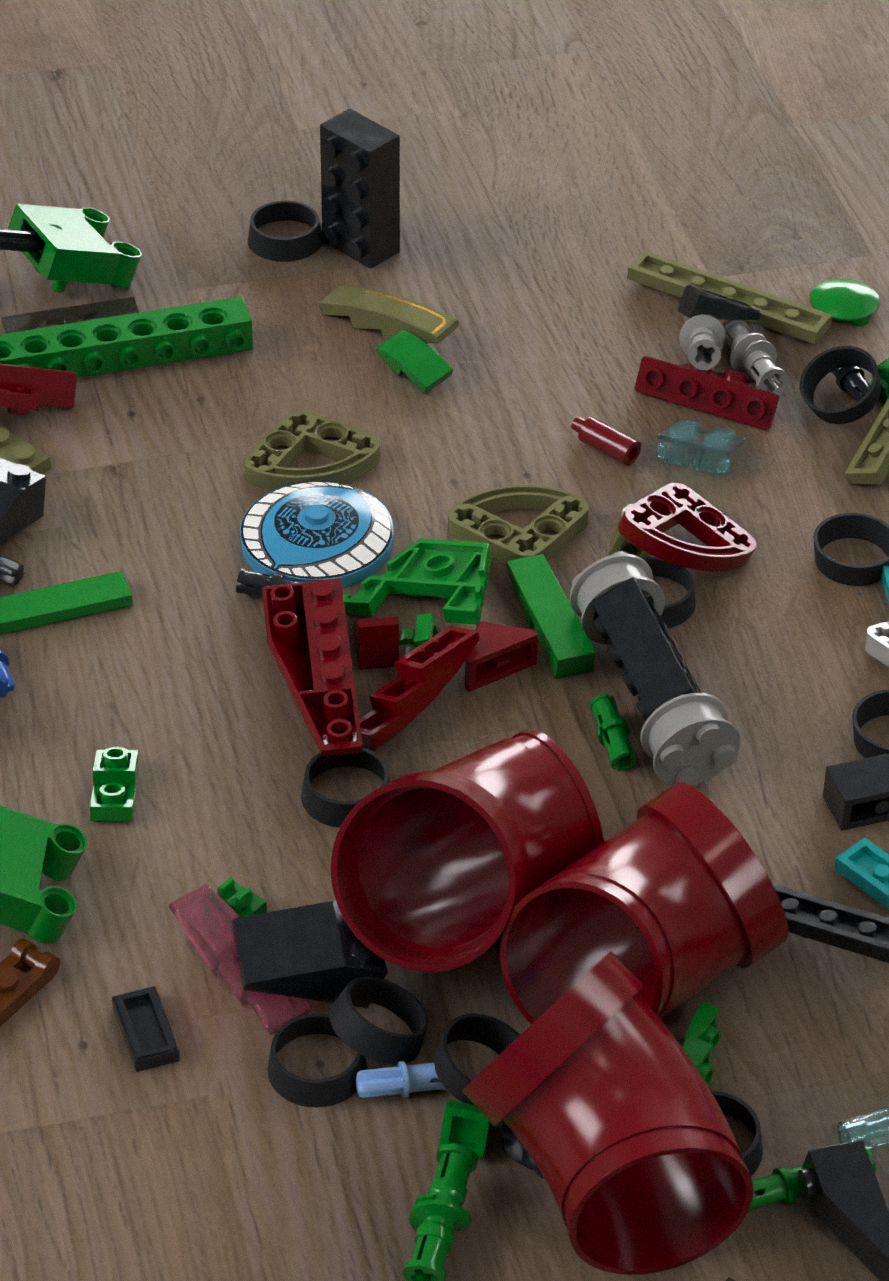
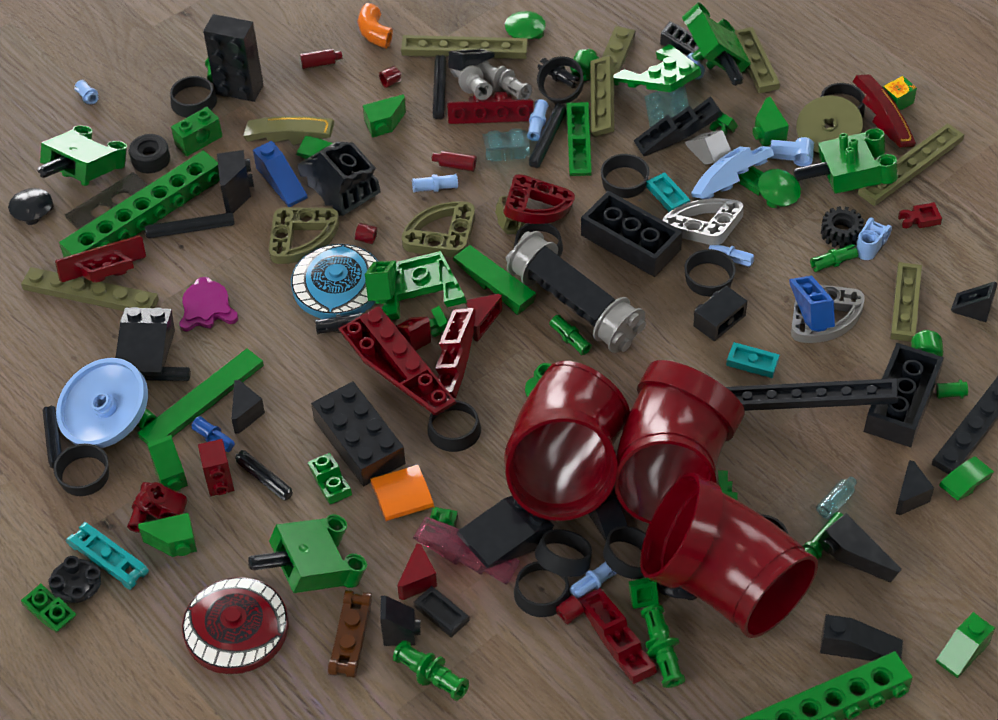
camera: 25 degrees left, 10 degrees up
(24, 744) = (264, 475): none -> black axle
(58, 645) = (246, 407): none -> black slope
(60, 1008) = (398, 622): none -> black slope
(65, 1096) = (430, 670): none -> green piece
(107, 495) = (204, 304): none -> magenta tile
(139, 960) = (417, 575): none -> dark red slope
(143, 181) = (88, 94): none -> light blue pin
(161, 389) = (189, 225): none -> black axle
(170, 279) = (149, 163): none -> black tyre
(195, 740) = (358, 433): none -> black brick
(203, 844) = (402, 492): none -> orange slope
(239, 276) = (196, 131): none -> green brick
(255, 348) = (234, 179): none -> black slope
(332, 366) = (278, 173): none -> blue slope
(336, 1106) = (570, 609): none -> dark red hose
(369, 550) = (381, 281): none -> green slope
(383, 1175) = (617, 636): none -> dark red slope
(402, 486) = (366, 233): none -> dark red hose
(416, 397) = (341, 176): none -> black slope
(488, 995) = (608, 516): none -> black slope
(501, 242) = (319, 58): none -> dark red cylinder
(543, 344) = (384, 115): none -> green slope
(553, 457) = (434, 183): none -> light blue pin
(588, 298) = (390, 76): none -> dark red hose
(605, 228) = (371, 29): none -> orange cylinder
(651, 339) = (439, 87): none -> black axle
(771, 428) = (537, 120): none -> light blue pin
(773, 455) = (547, 135): none -> black axle
(804, 627) = (631, 233): none -> black brick
(819, 476) = (579, 139): none -> green slope

